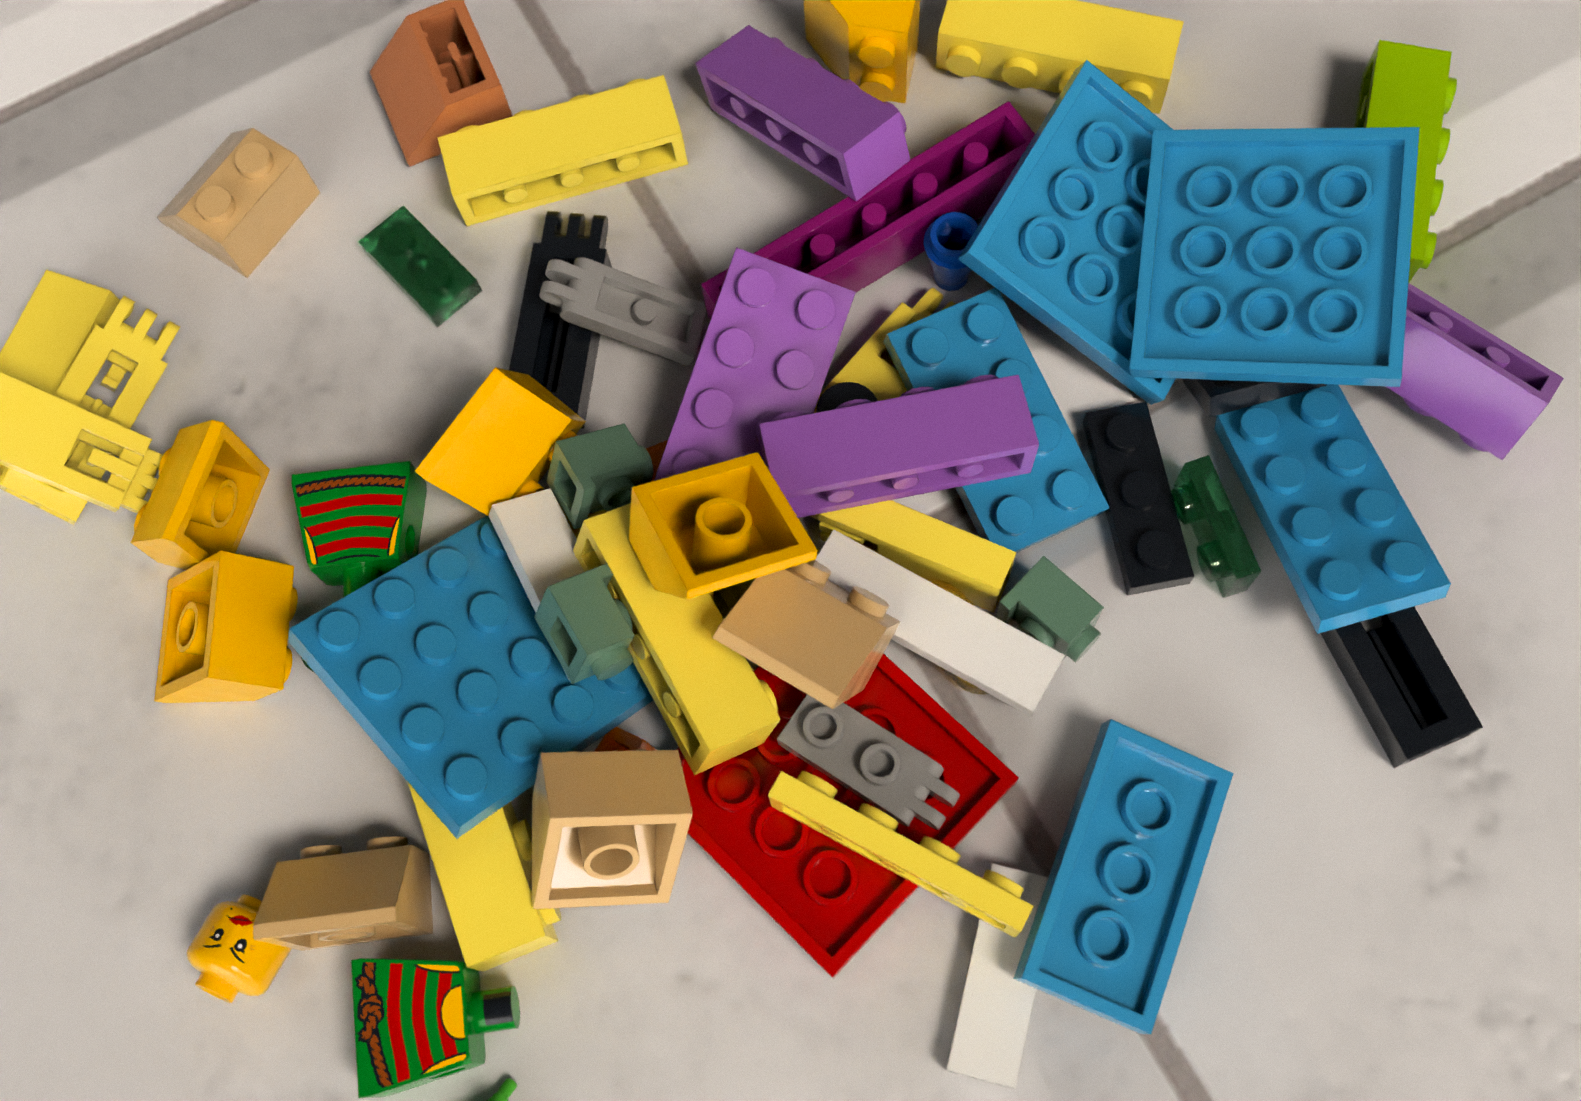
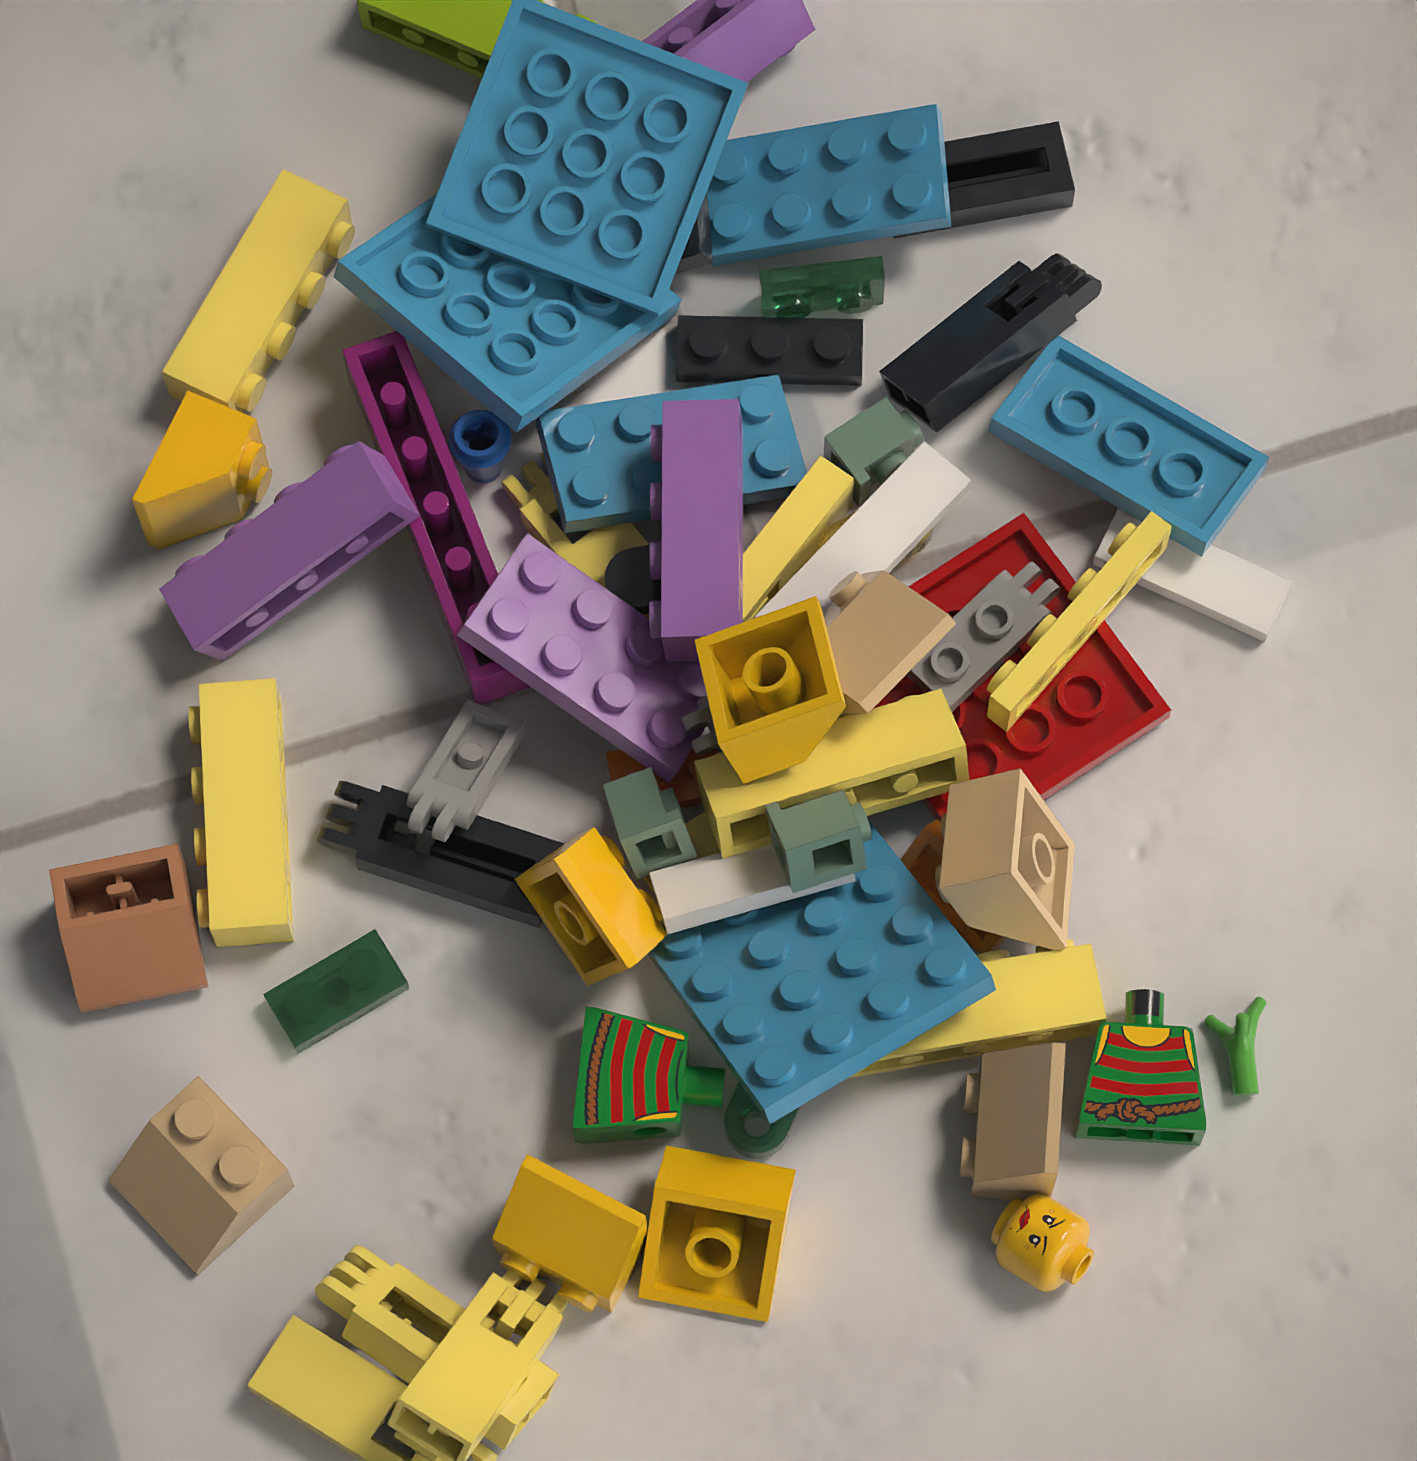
camera: 85 degrees left, 0 degrees up
(1210, 707) = (988, 339): none -> black hinge

